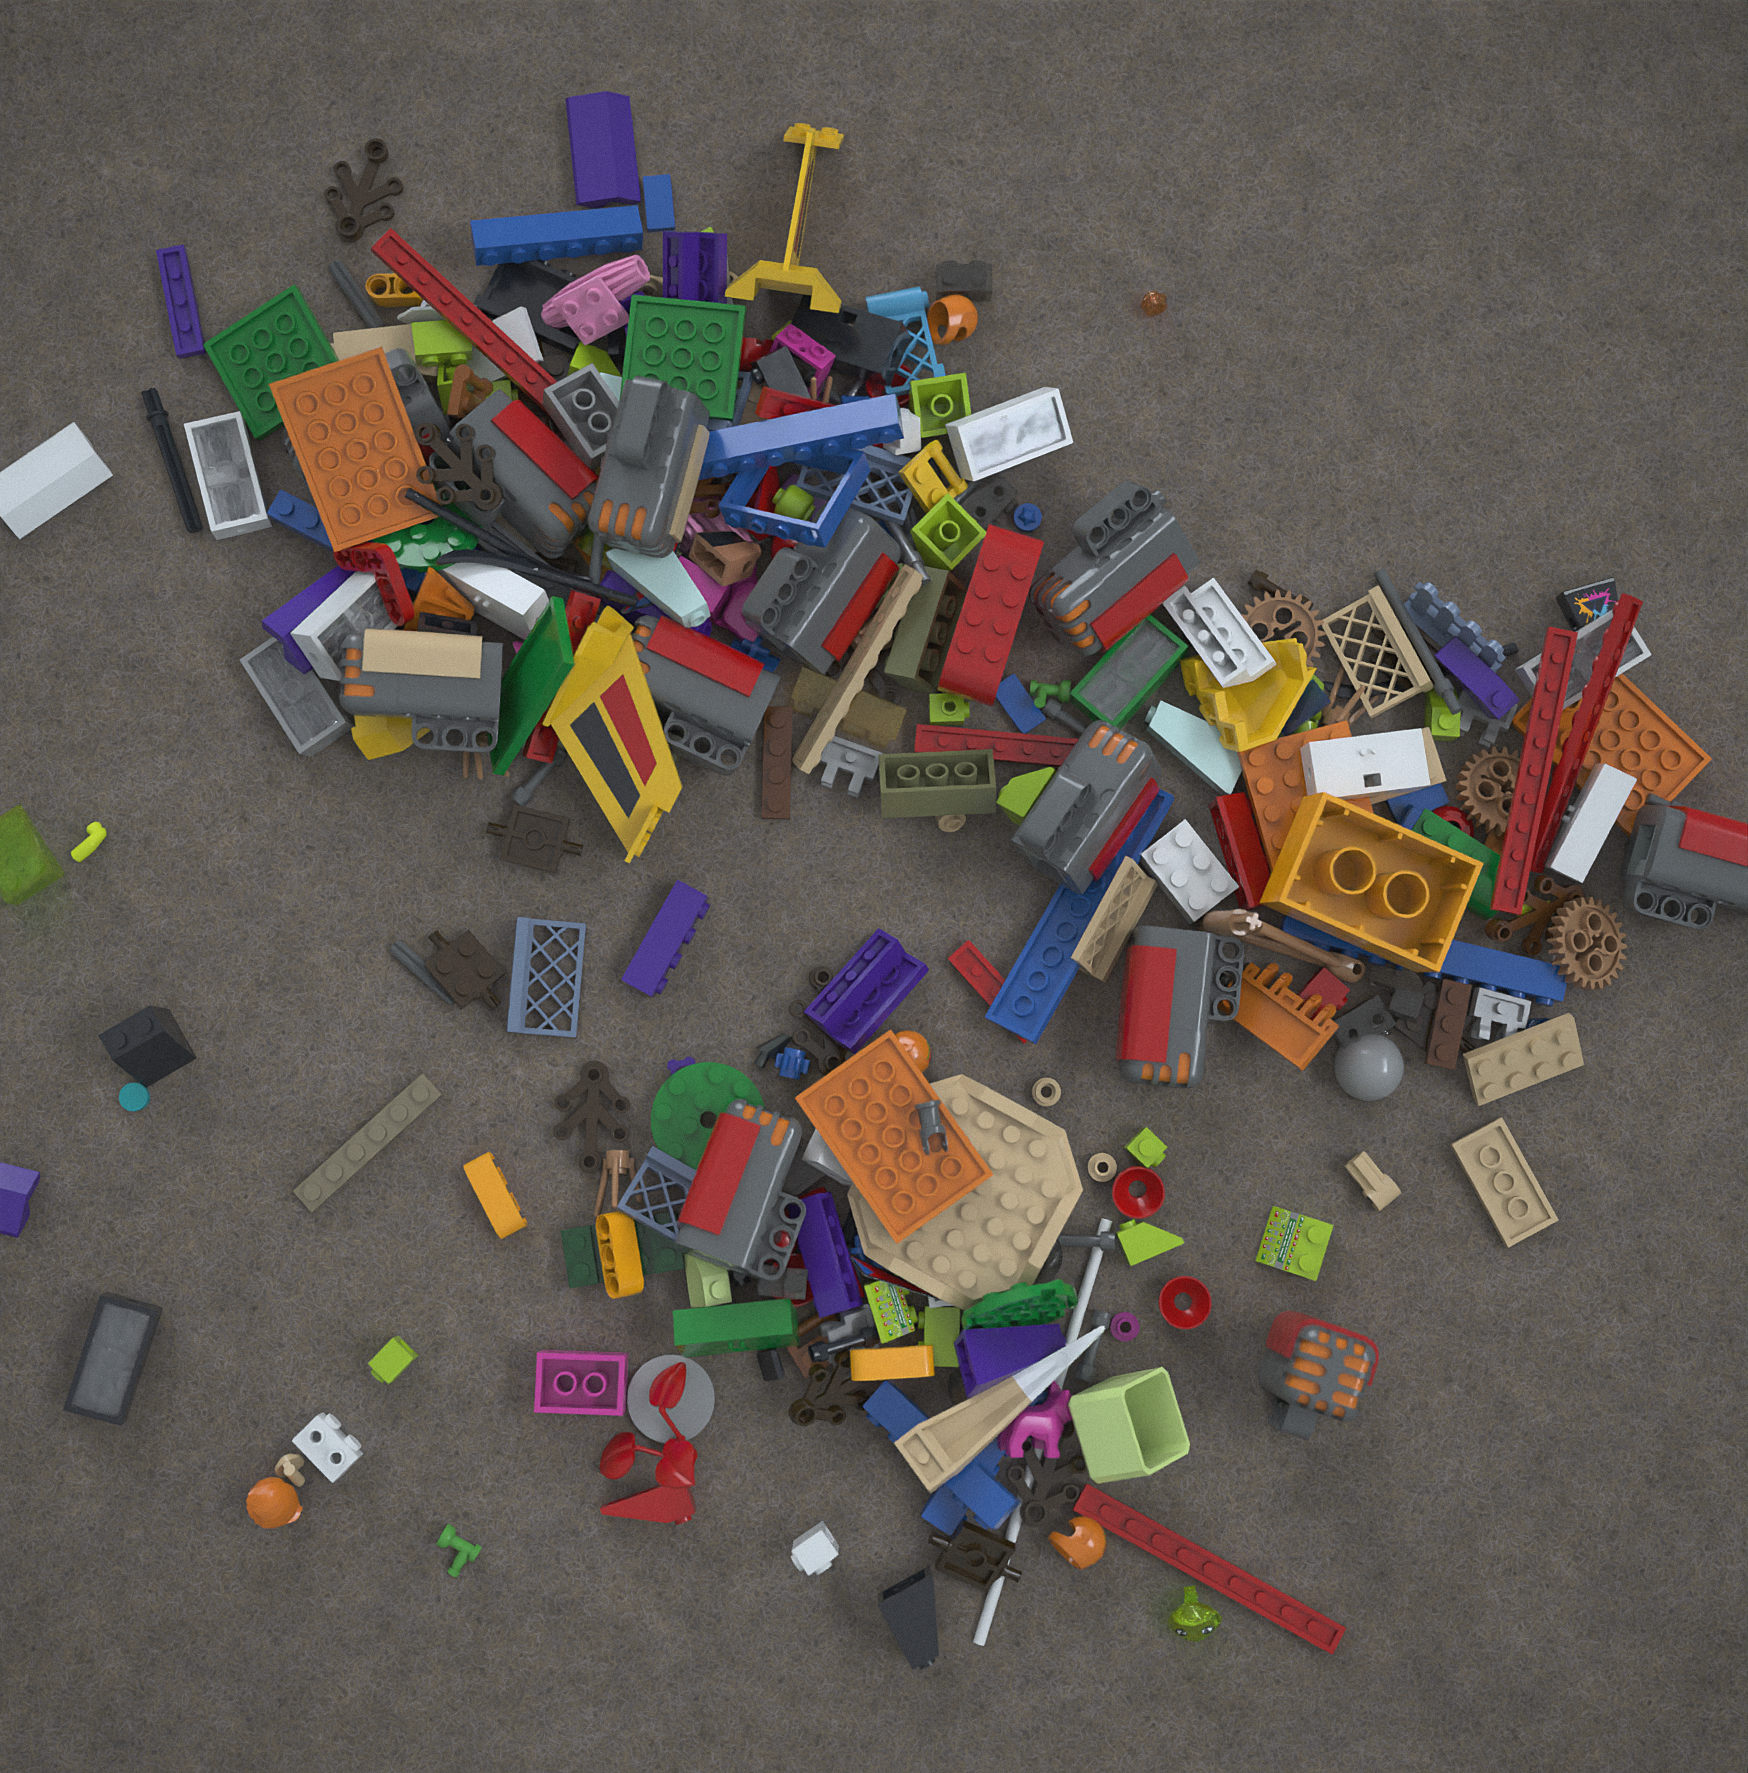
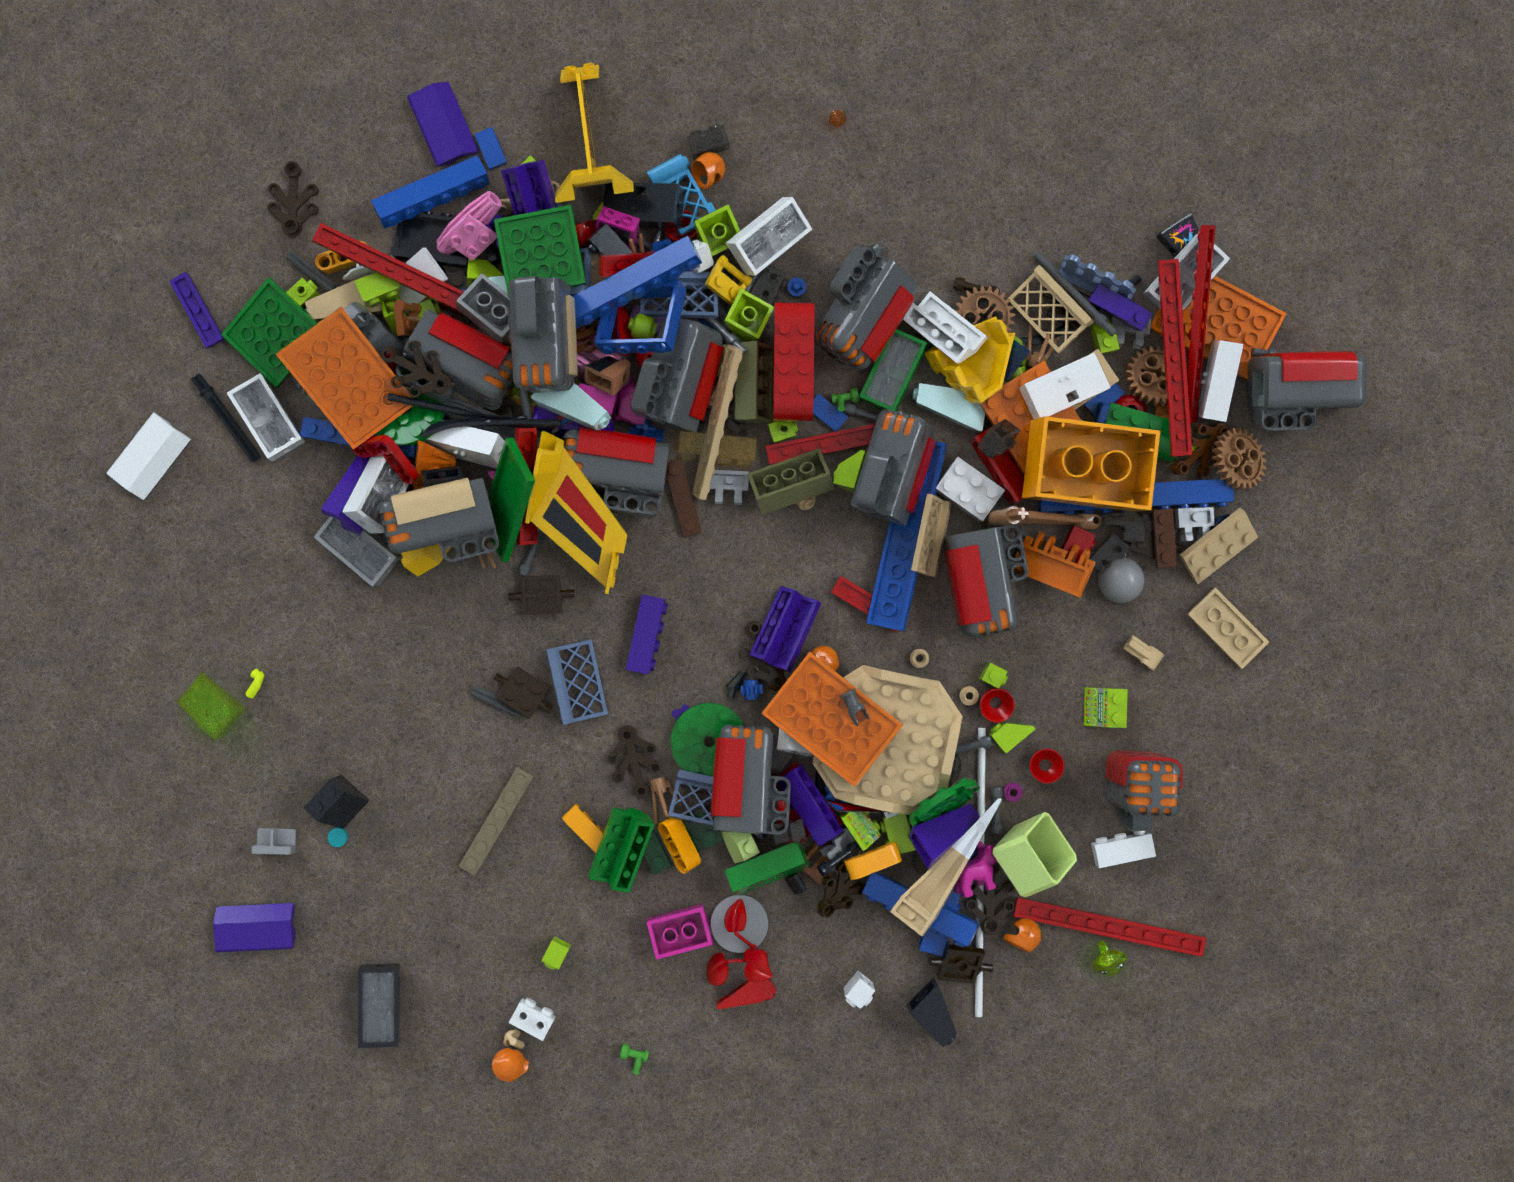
camera: 15 degrees left, 5 degrees up
(43, 1075) = (275, 841): none -> light grey panel
(336, 318) = (303, 291): none -> lime brick
(534, 1235) = (621, 848): none -> green brick
(1250, 809) = (999, 439): none -> clear smoke brick
(1261, 1458) = (1123, 848): none -> white brick

